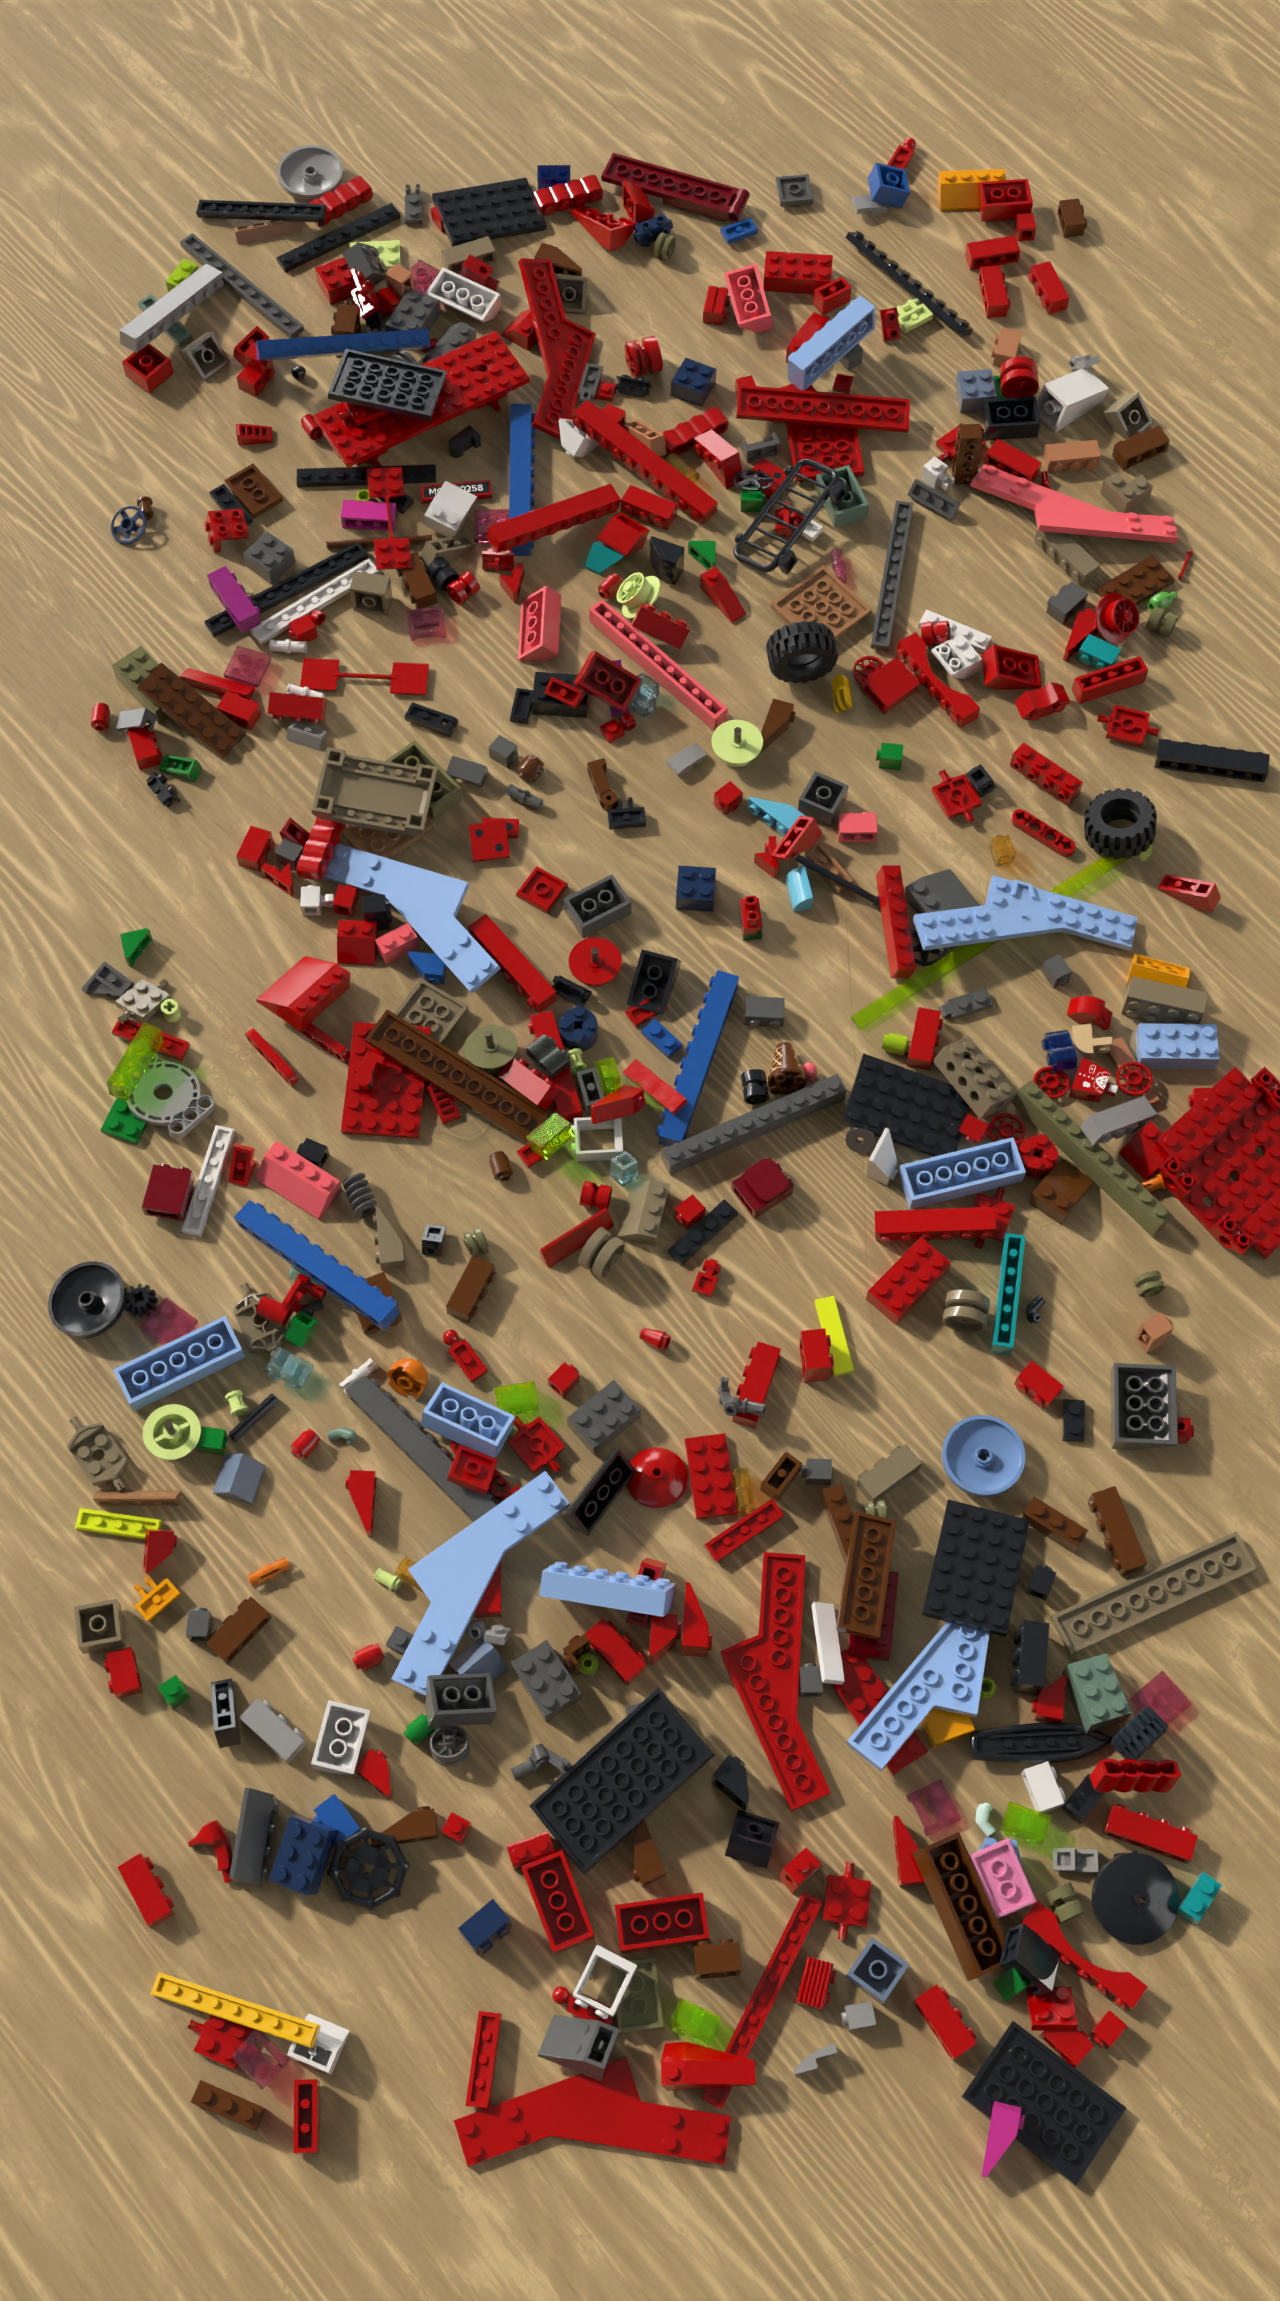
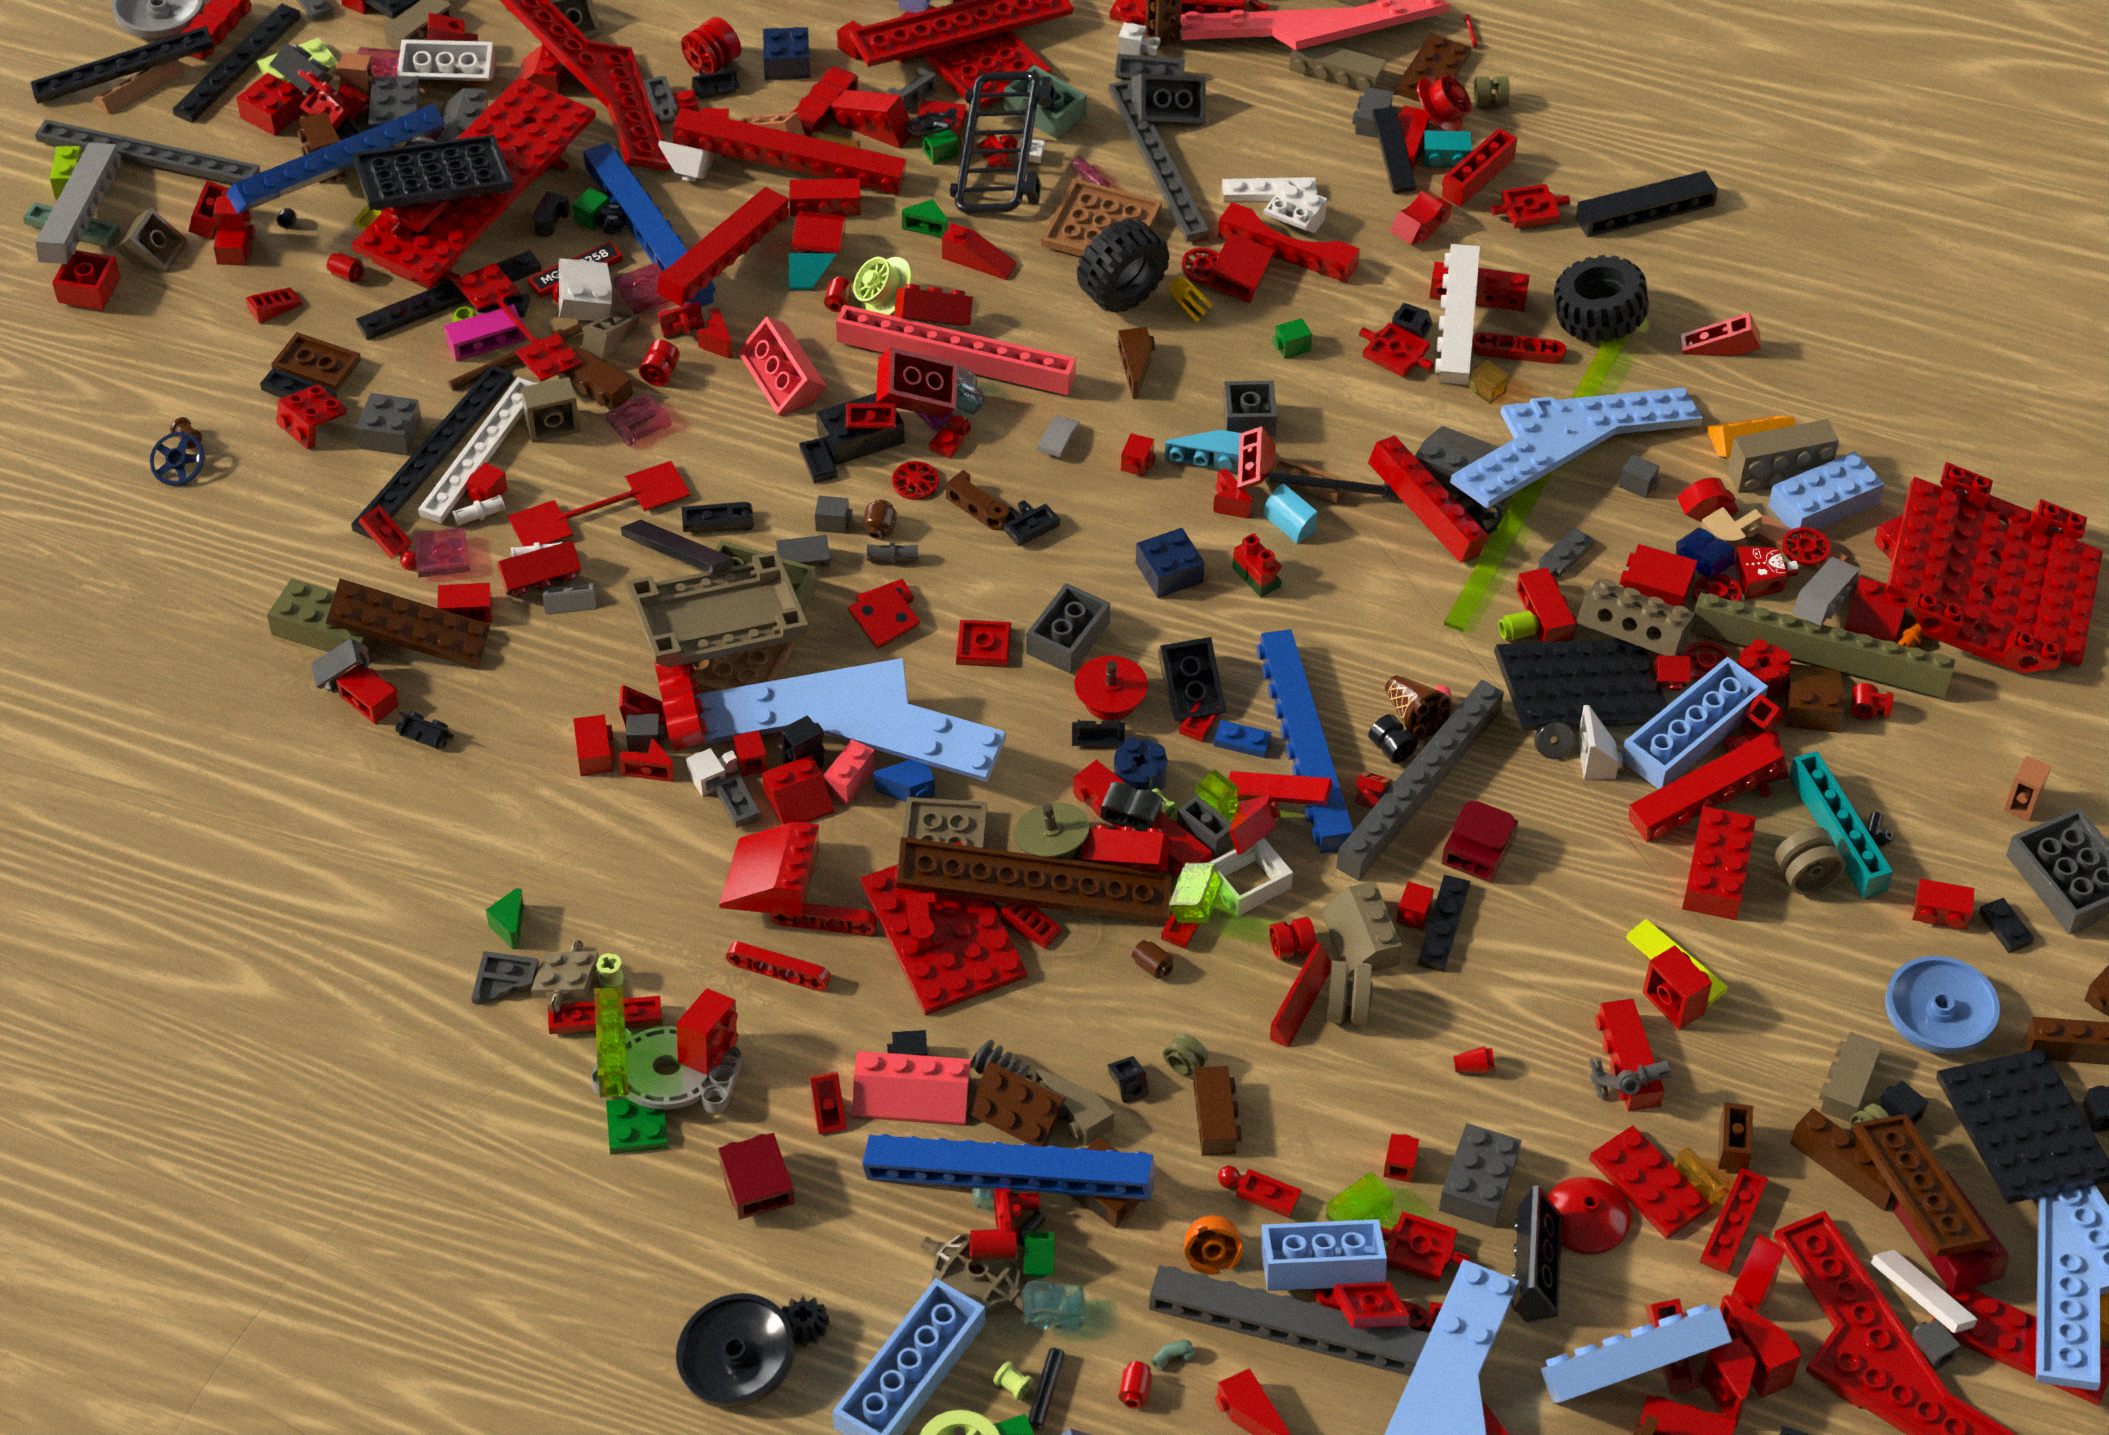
camera: 30 degrees left, 15 degrees down
(100, 716) = (285, 682): red brick -> none
(168, 1322) = (857, 1332): clear pink plate -> none
(191, 771) = (444, 689): green slope -> none
(192, 1083) = (707, 1031): none -> red brick
(208, 1181) = (793, 1144): white tile -> none
(215, 683) = (419, 587): red slope -> none
(220, 640) = (389, 537): none -> red plate
(234, 599) = (378, 482): magenta brick -> none
(318, 617) = (496, 461): red hinge -> none
(318, 930) = (737, 801): none -> dark grey plate
(350, 1224) = (1016, 1105): none -> reddish brown plate
(357, 1375) = (1145, 1275): white pin -> none
(385, 732) = (677, 546): none -> black tile
(442, 572) = (624, 356): black wheel -> none
(491, 450) = (587, 207): none -> green brick
(499, 464) = (611, 219): none -> black gear
(513, 964) = (1025, 738): red brick -> none
(575, 749) = (915, 480): none -> red wheel
(624, 1168) = (1306, 892): clear light blue brick -> none
(667, 559) = (886, 236): black slope -> none
(706, 1282) = (1487, 970): red plate -> none
(719, 1113) = (1371, 789): none -> red slope
(721, 1580) = (1759, 1274): none -> red slope
(737, 742) = (1110, 392): yellowish green piece -> none
(764, 1011) = (1344, 656): dark grey brick -> none
(817, 1471) = (1772, 1113): dark grey brick -> none
(857, 827) = (1309, 424): coral brick -> none
(908, 1511) = (1903, 1100): none -> black brick
(928, 531) = (1169, 98): none -> dark grey slope
(935, 633) = (1255, 194): red wheel -> none
(1010, 669) = (1360, 201): red slope -> none
(1011, 790) = (1459, 314): none -> white brick
(1013, 1189) = (1764, 713): none -> red brick
(1015, 1053) = (1659, 574): none -> red brick
(1058, 639) = (1393, 149): none -> black tile
(1094, 1213) = (1868, 702): none -> red piece
(1149, 1284) = (1982, 744): olive wheel -> none
(1162, 600) = (1473, 70): bright green plant -> none

